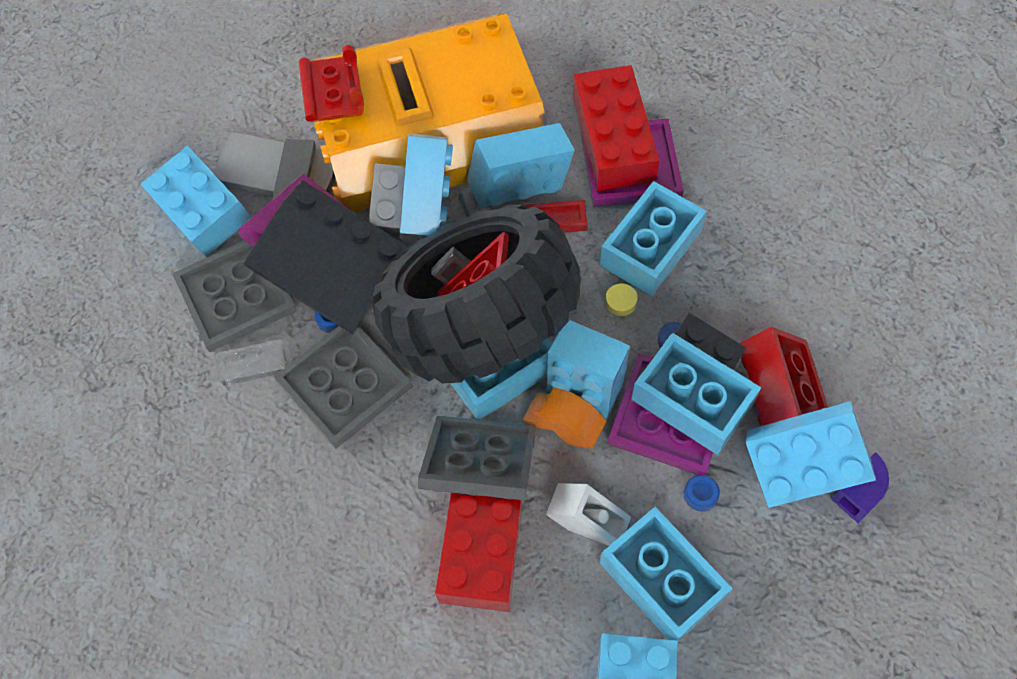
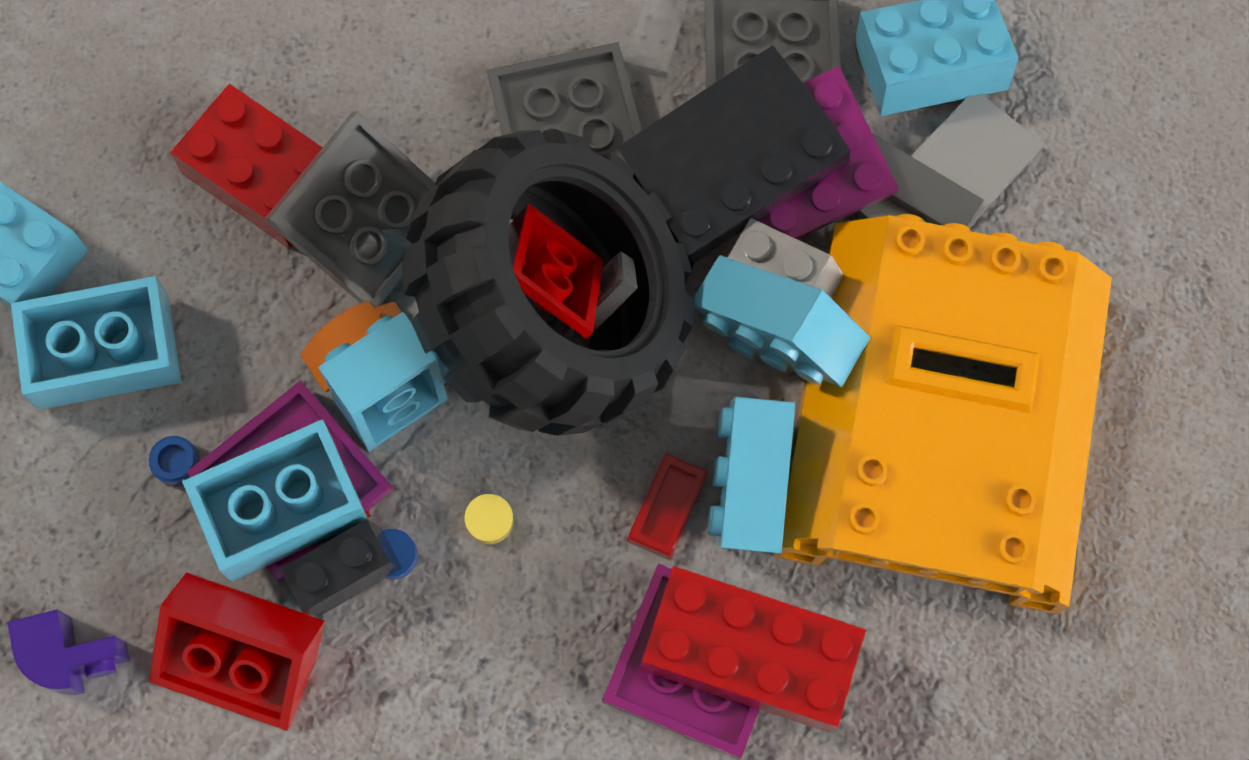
camera: 110 degrees right, 10 degrees up
(331, 87) = (1003, 259): red piece -> none
(587, 513) = (225, 306): white slope -> none
(652, 238) = (544, 601): medium azure brick -> none
(810, 455) = (108, 587): medium azure brick -> none

